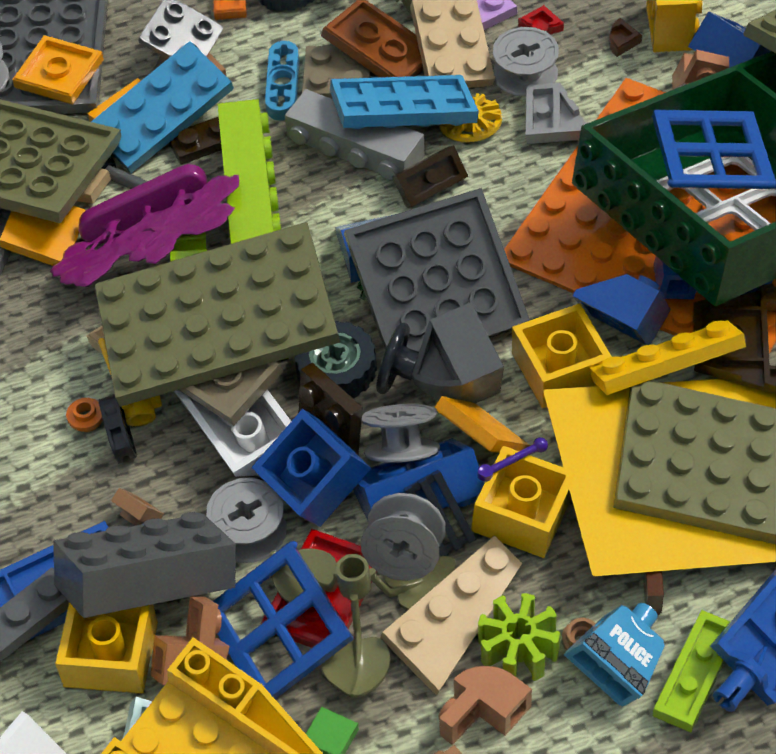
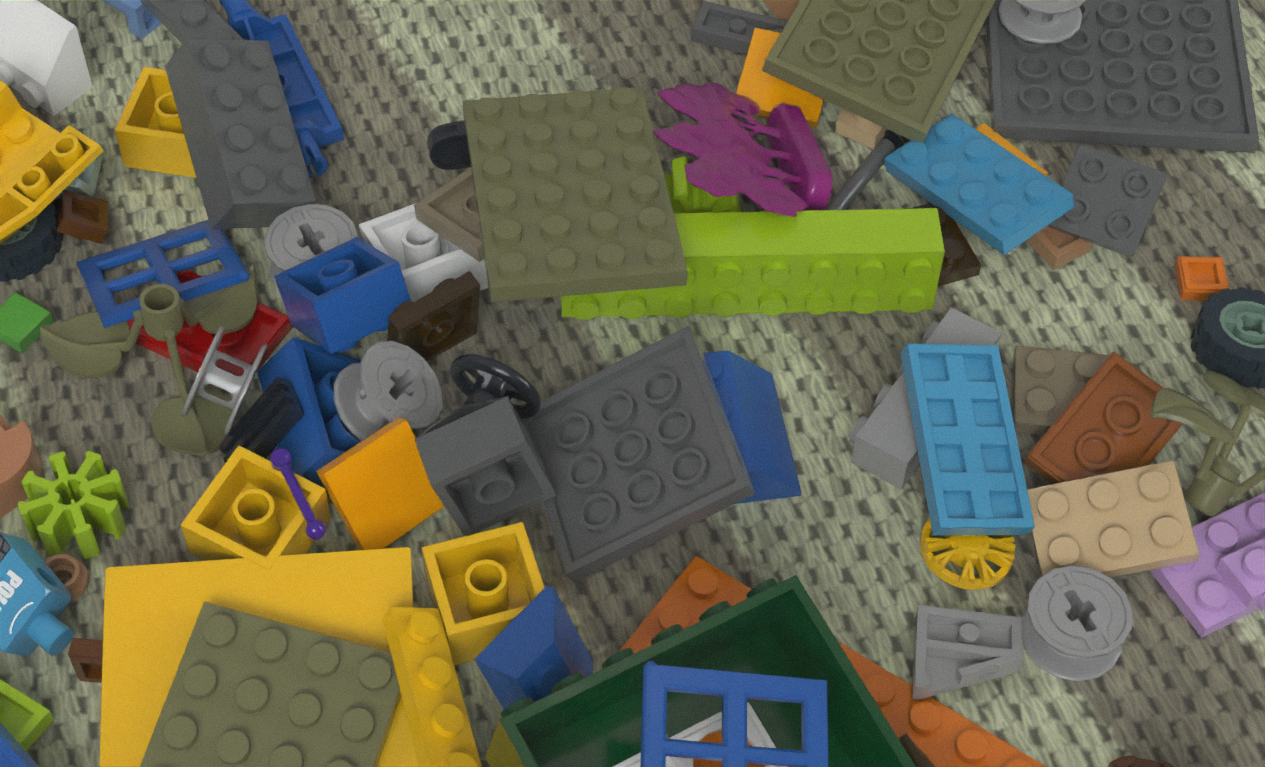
camera: 90 degrees right, 0 degrees up
(58, 69) = (1049, 85): light orange tile -> none
(135, 508) = (355, 157): medium nougat plate -> none
(202, 624) = (143, 190): nougat brick -> none
(277, 70) = (1061, 317): dark azure beam -> none
(355, 364) = (536, 328): black wheel -> none
(430, 176) = (845, 480): dark brown plate -> none
(445, 621) = (122, 427): tan wing -> none
(542, 19) = (1179, 666): red tile -> none

